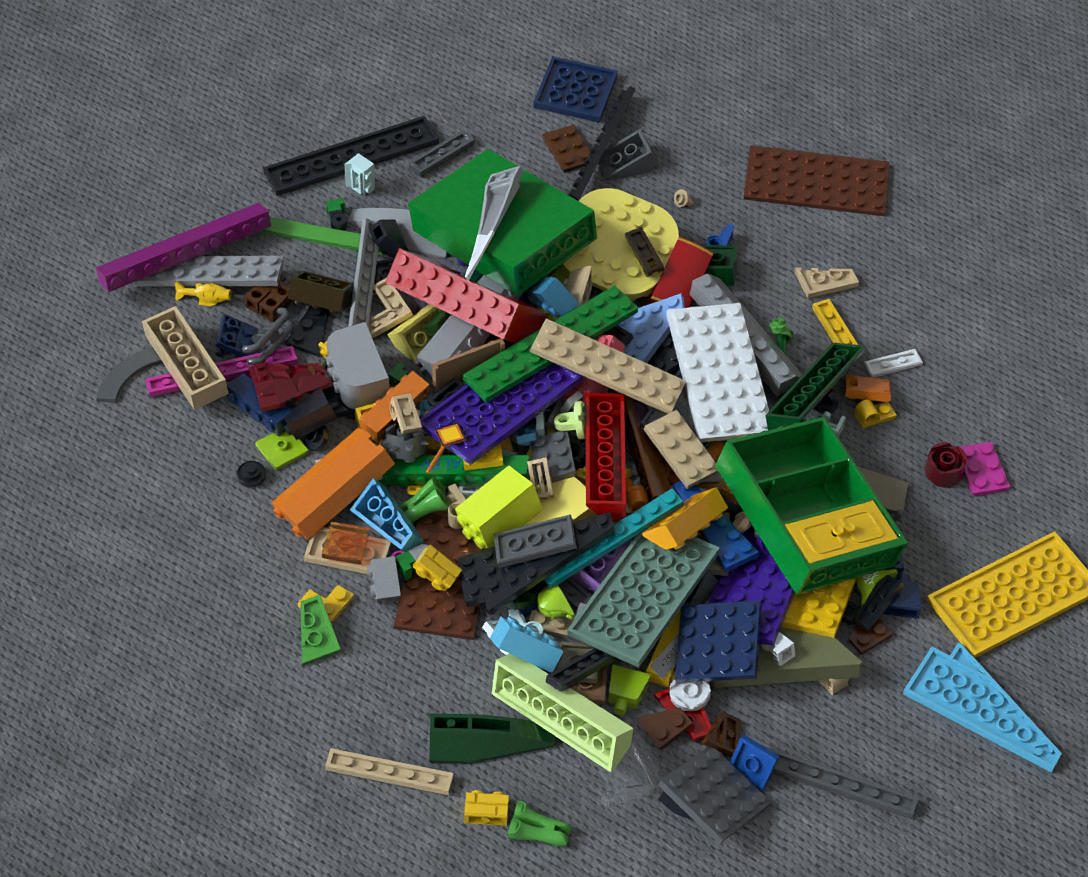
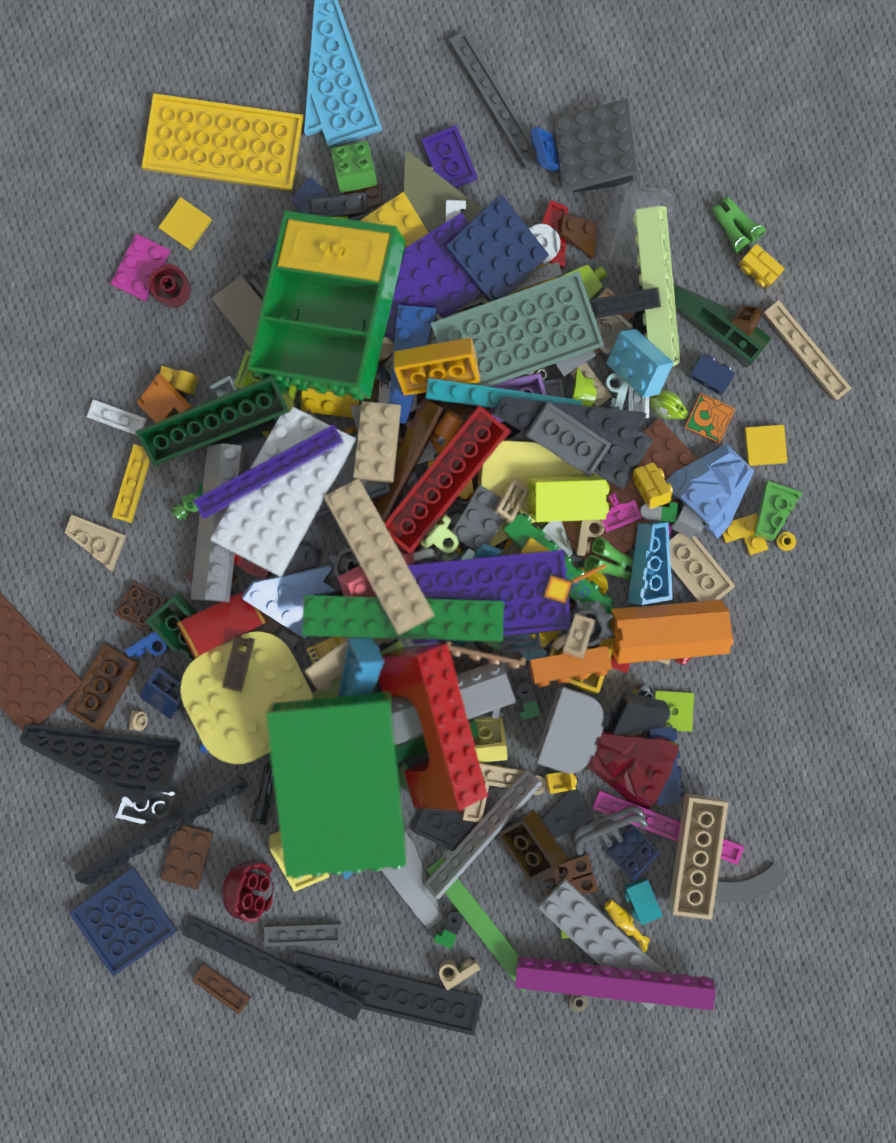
camera: 135 degrees left, 35 degrees up
(202, 314) = (643, 901): none -> teal brick
(251, 474) = (717, 701): black plate -> none
(286, 624) = (780, 541): none -> yellow plate
(311, 191) = (468, 968): none -> tan plate
(345, 543) = (698, 569): clear orange plate -> none
(360, 174) = (399, 956): light aqua window -> none
(364, 675) = (765, 445): none -> yellow tile
(384, 607) = (713, 487): none -> medium blue wedge
(388, 236) = (429, 863): black slope -> none
(429, 666) = (709, 418): none -> tile
(444, 121) = (273, 968): none -> black plate
(446, 536) = (620, 514): none -> dark pink plate
(457, 695) = (712, 374): none -> dark blue brick
(463, 754) = (747, 318): none -> reddish brown slope
(470, 93) = (221, 988): none -> reddish brown plate
(475, 652) = (668, 405): none -> lime hat
(497, 197) = (333, 796): light grey plate -> none
(507, 141) = (238, 891): none -> dark red cylinder
(673, 158) = (118, 762): none -> black wing
(688, 224) = (163, 692): none -> dark blue slope
(724, 734) = (544, 192): reddish brown wing -> none
(728, 201) = (102, 686): none -> reddish brown slope
(740, 368) = (268, 471): none -> dark purple plate
(753, 264) = (139, 605): none -> reddish brown tile
(826, 708) = (449, 157): none -> dark purple plate
(894, 640) = (354, 166): none -> bright green brick
(981, 518) = (185, 223): none -> yellow tile

